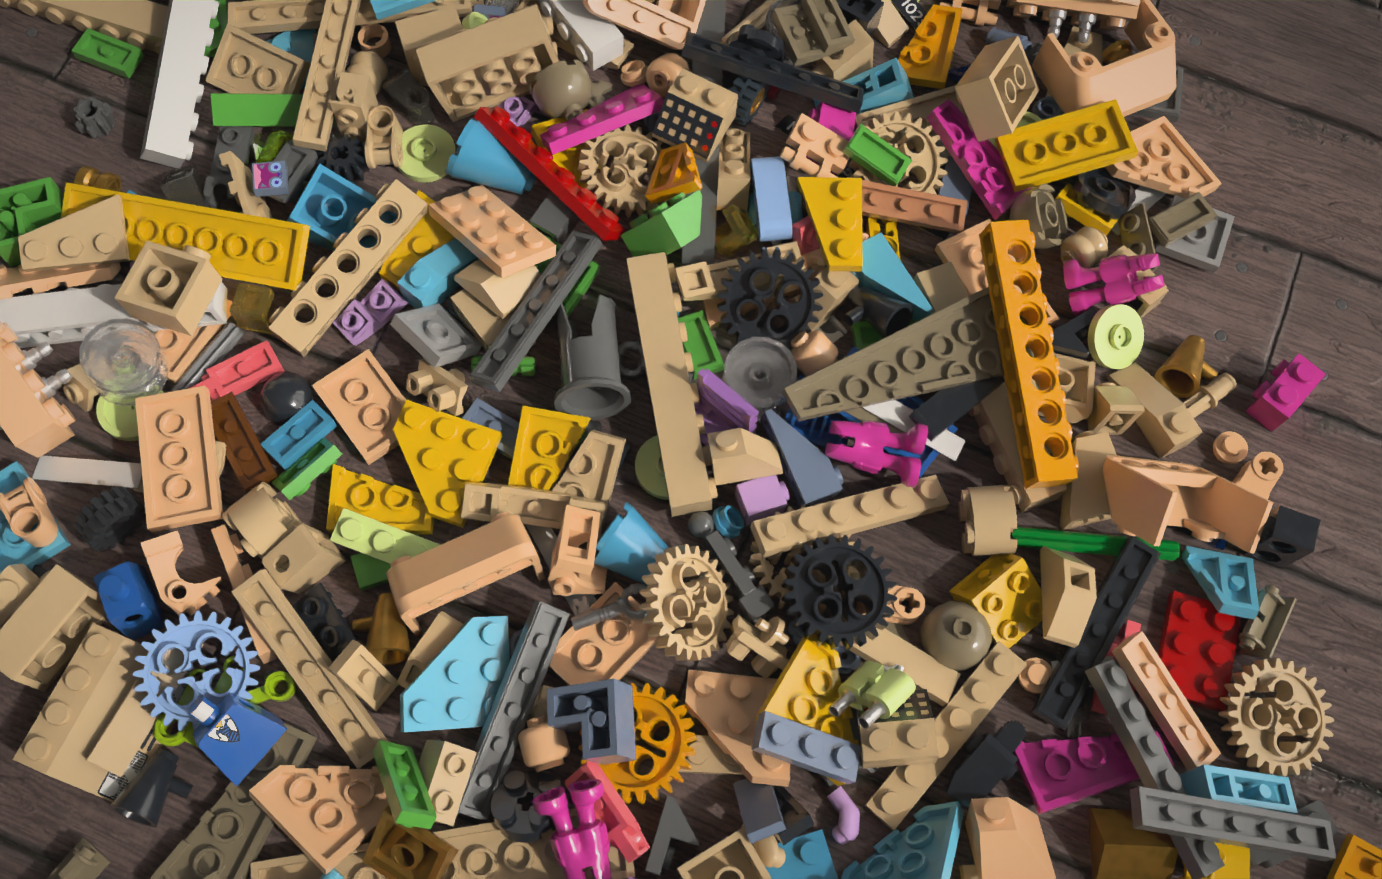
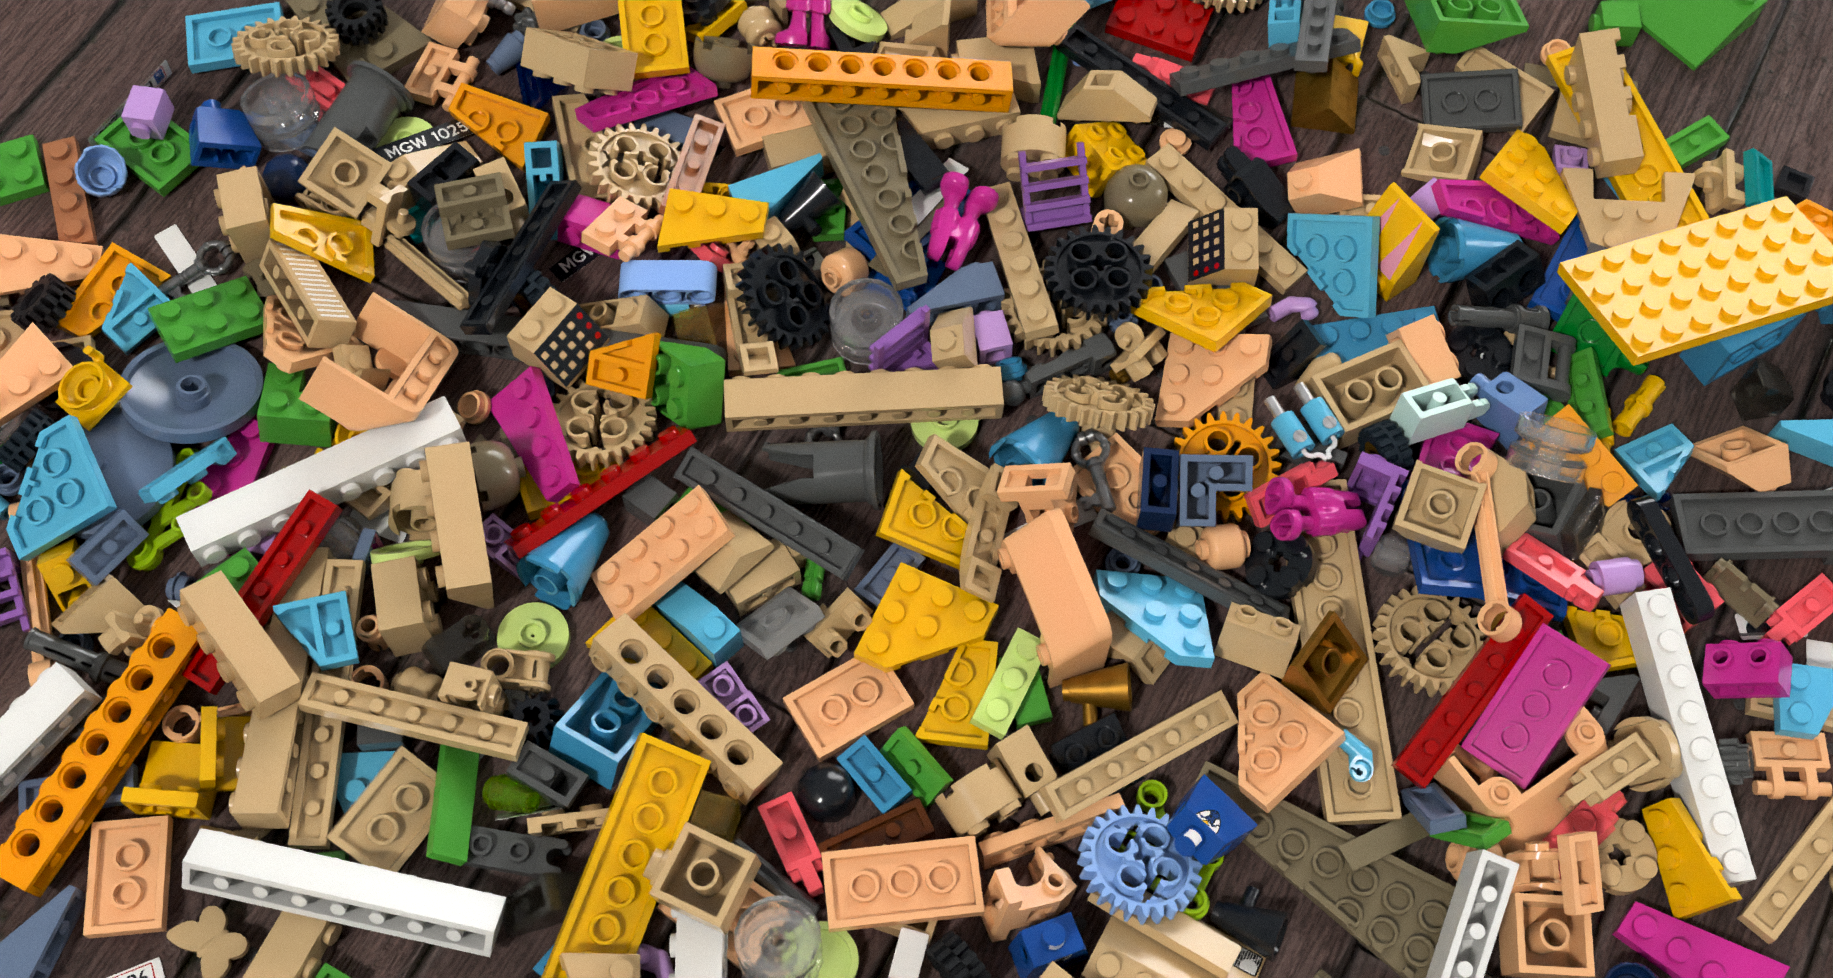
camera: 80 degrees left, 5 degrees down
(270, 178) = (561, 784): tile -> none
(364, 675) = (1149, 704): tan plate -> none
(404, 785) = (1265, 659): bright green plate -> none
(587, 663) = (1157, 489): none -> dark blue brick
(664, 71) = (487, 370): light nougat head -> none
(691, 838) = (1294, 434): none -> medium azure piece
(758, 809) = (1292, 366): sand blue tile -> none
(806, 747) = (1244, 312): sand blue plate -> none
(875, 687) = (1191, 255): yellowish green piece -> none
(877, 155) = (639, 176): bright green tile -> none
(920, 542) = (1056, 211): none -> medium lavender plate
(1165, 701) = (1207, 46): light nougat plate -> none

